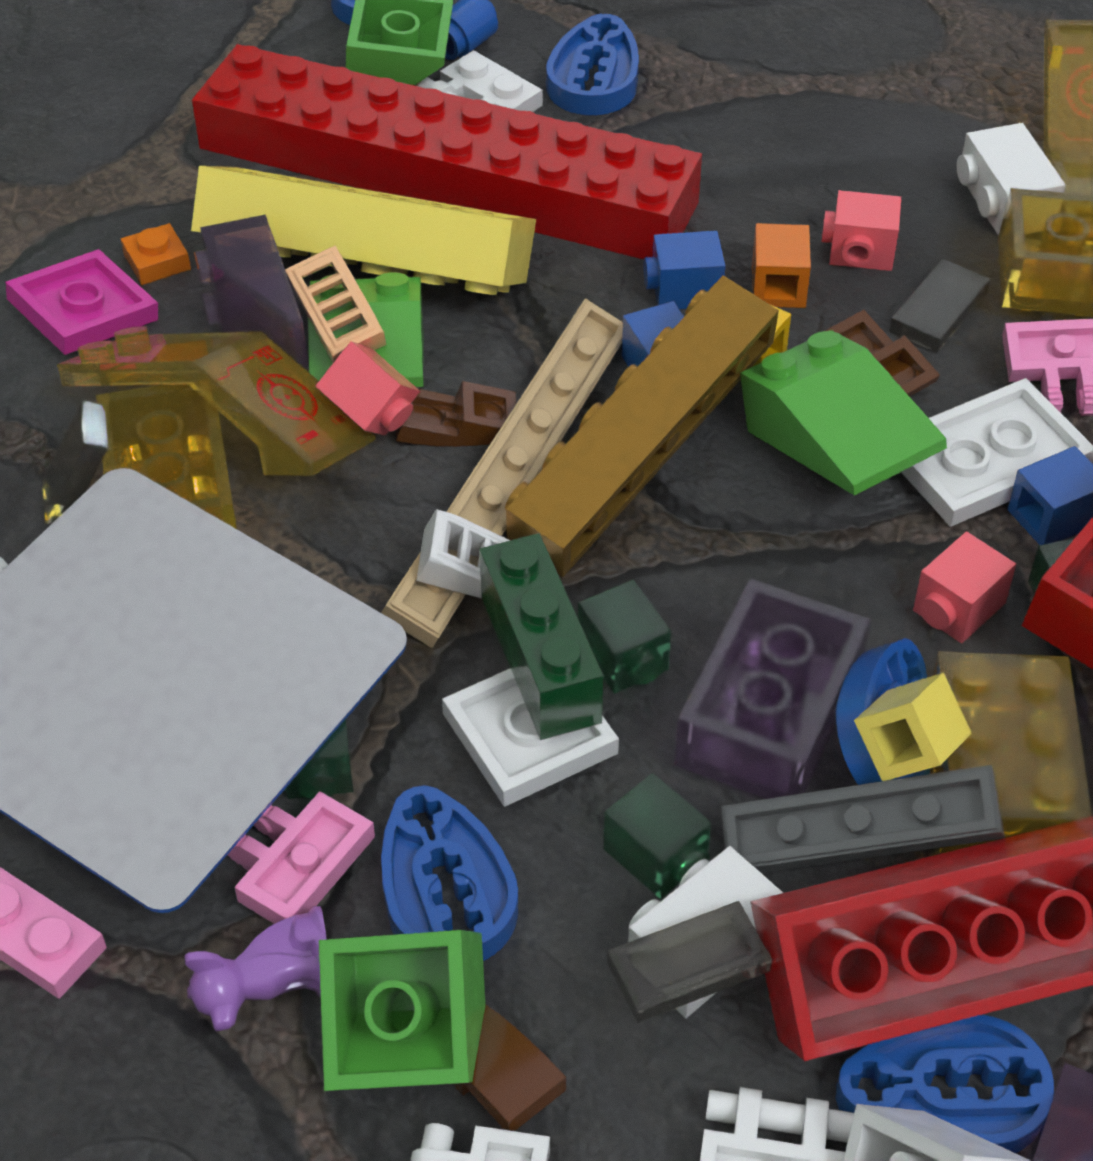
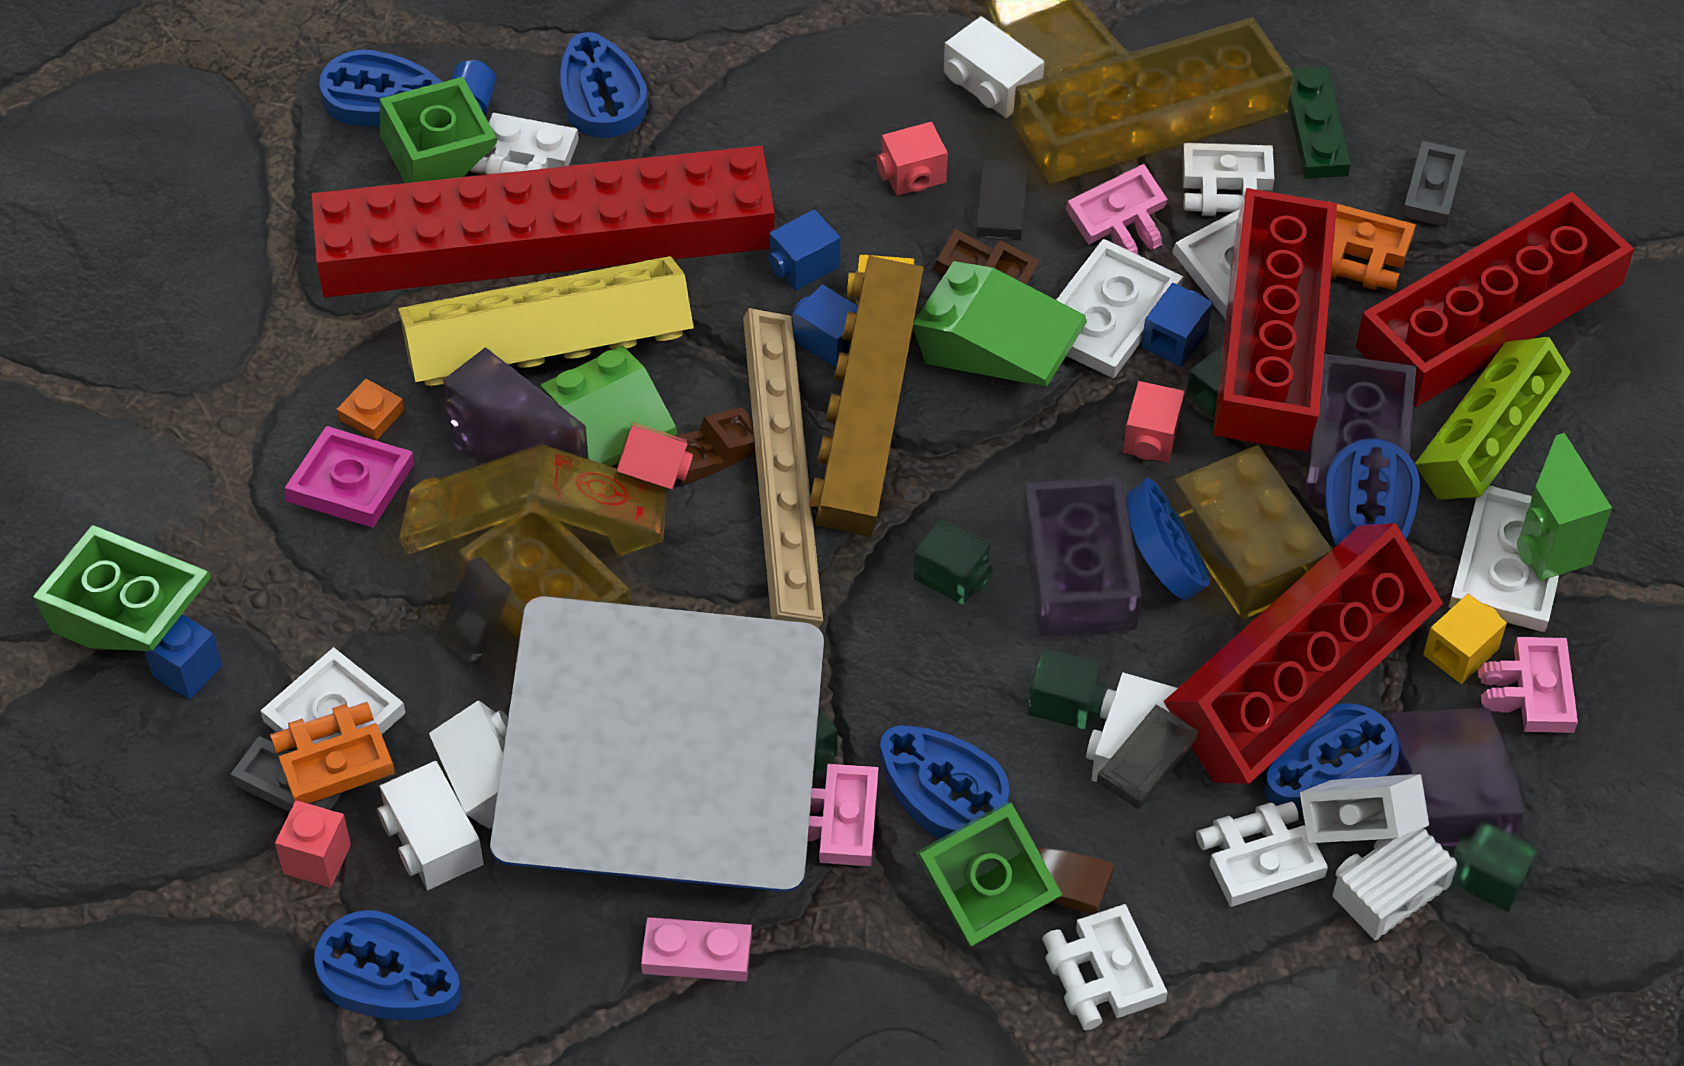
camera: 30 degrees left, 5 degrees up
(273, 964) = (883, 881): medium lavender animal -> none
(369, 334) = (613, 396): light nougat slope -> none
(445, 570) = (797, 569): white slope -> none
(506, 746) = (930, 654): white plate -> none
(541, 636) = (909, 587): dark green brick -> none
(781, 264) = (871, 216): orange brick -> none
(866, 820) = (1193, 616): dark grey tile -> none
(913, 727) = (1197, 540): light yellow brick -> none

